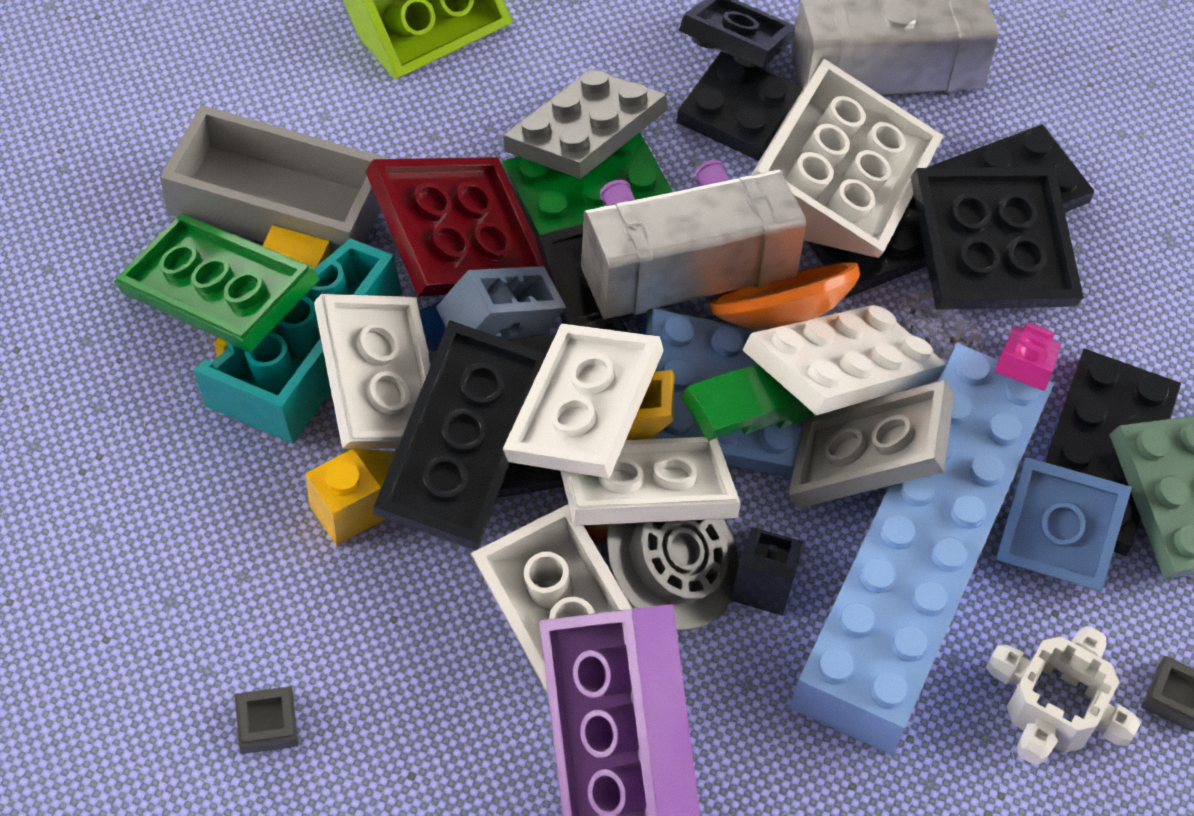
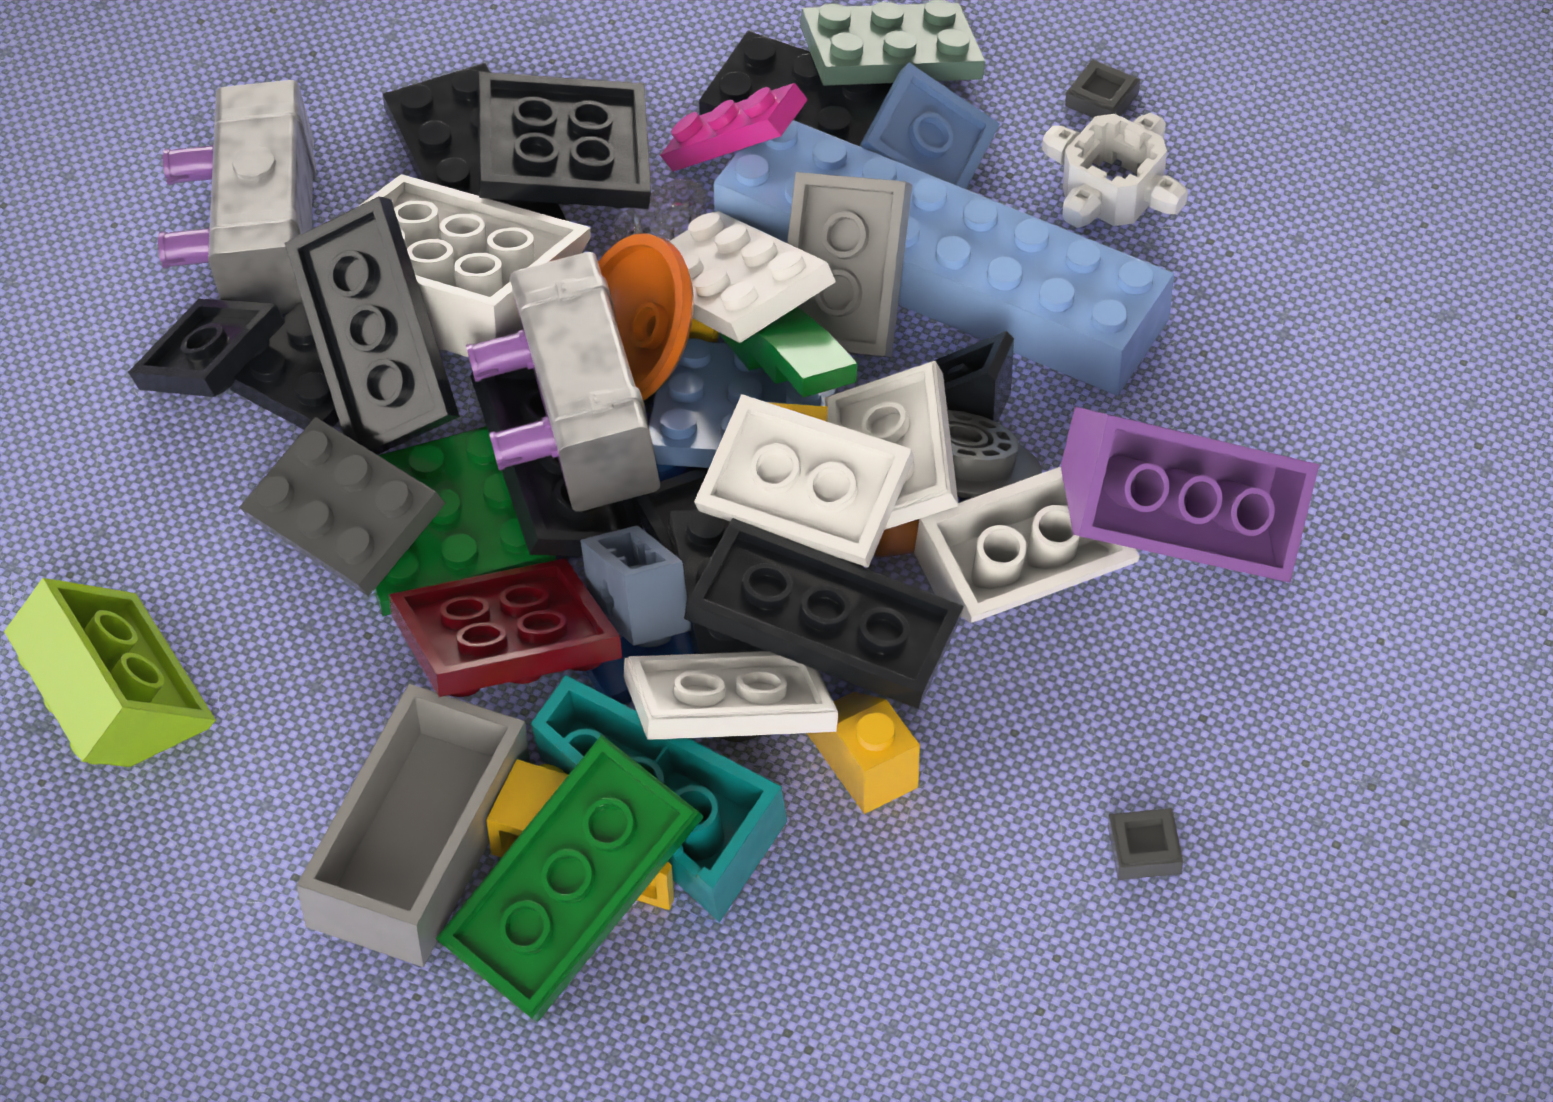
camera: 80 degrees left, 5 degrees down
(744, 108) = (371, 327): none -> plate

